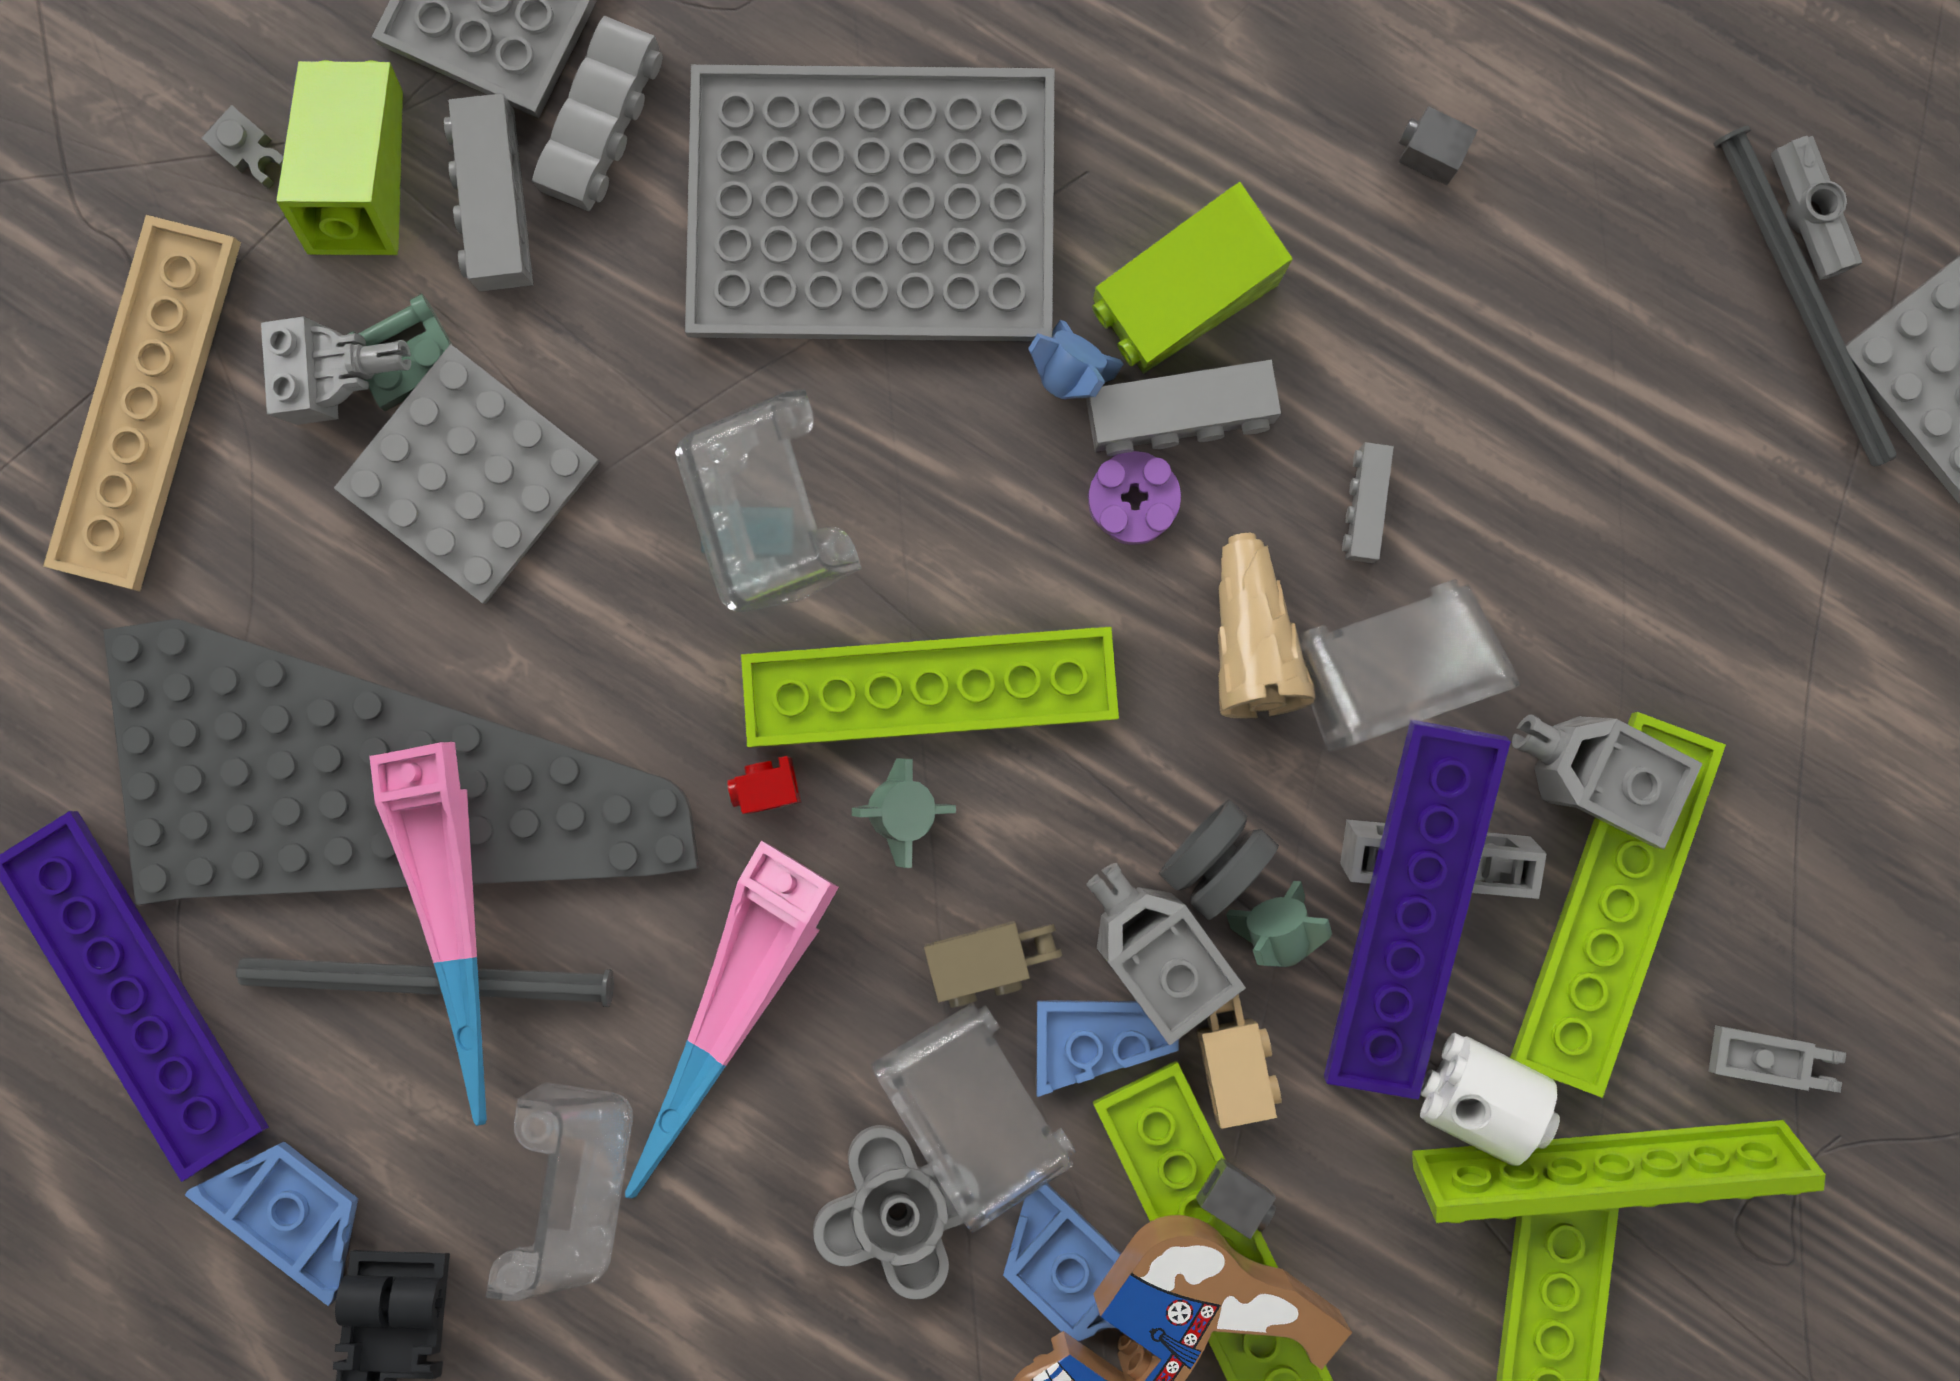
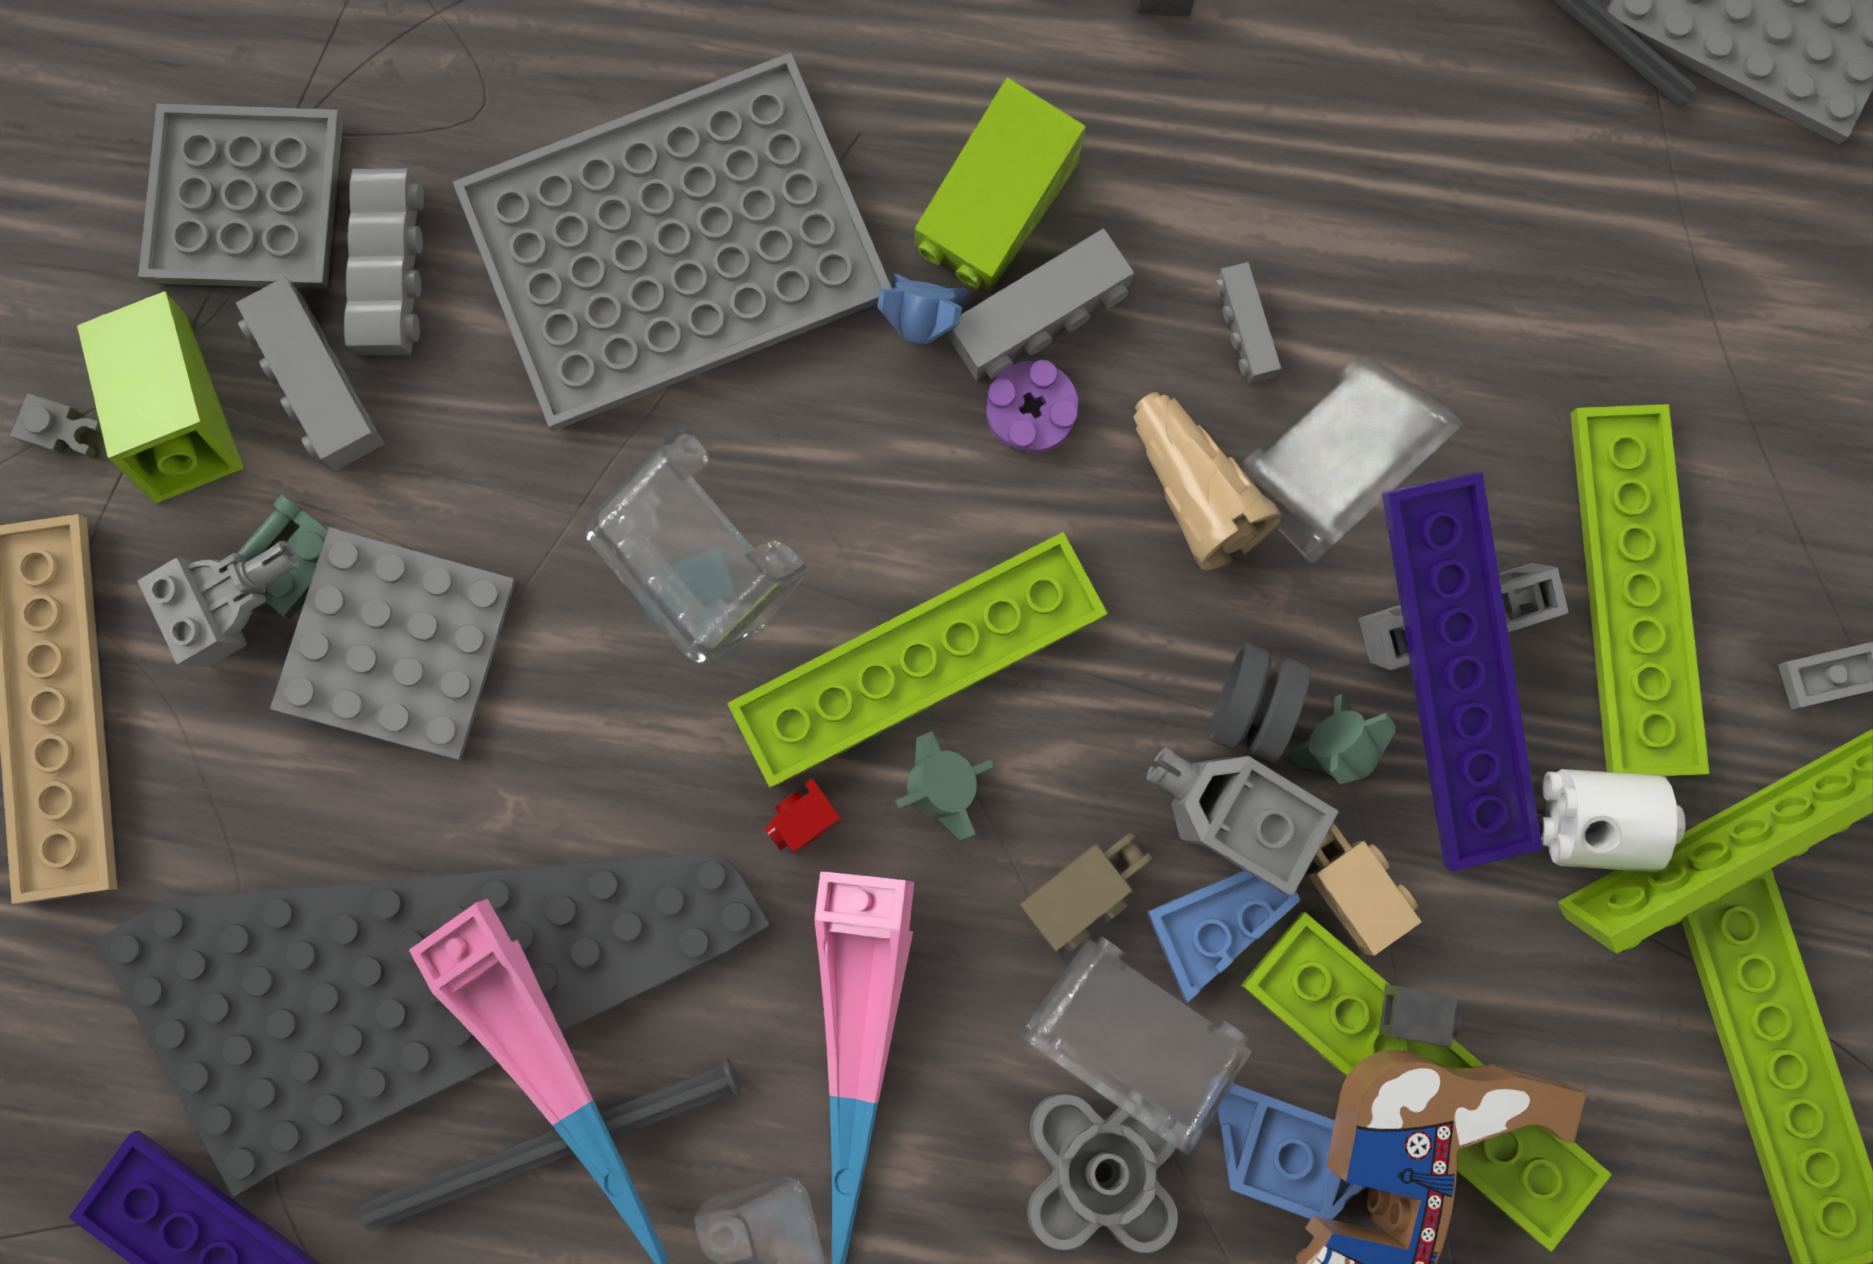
camera: 25 degrees left, 5 degrees down
(1610, 773) = (1579, 472): light grey plate -> none

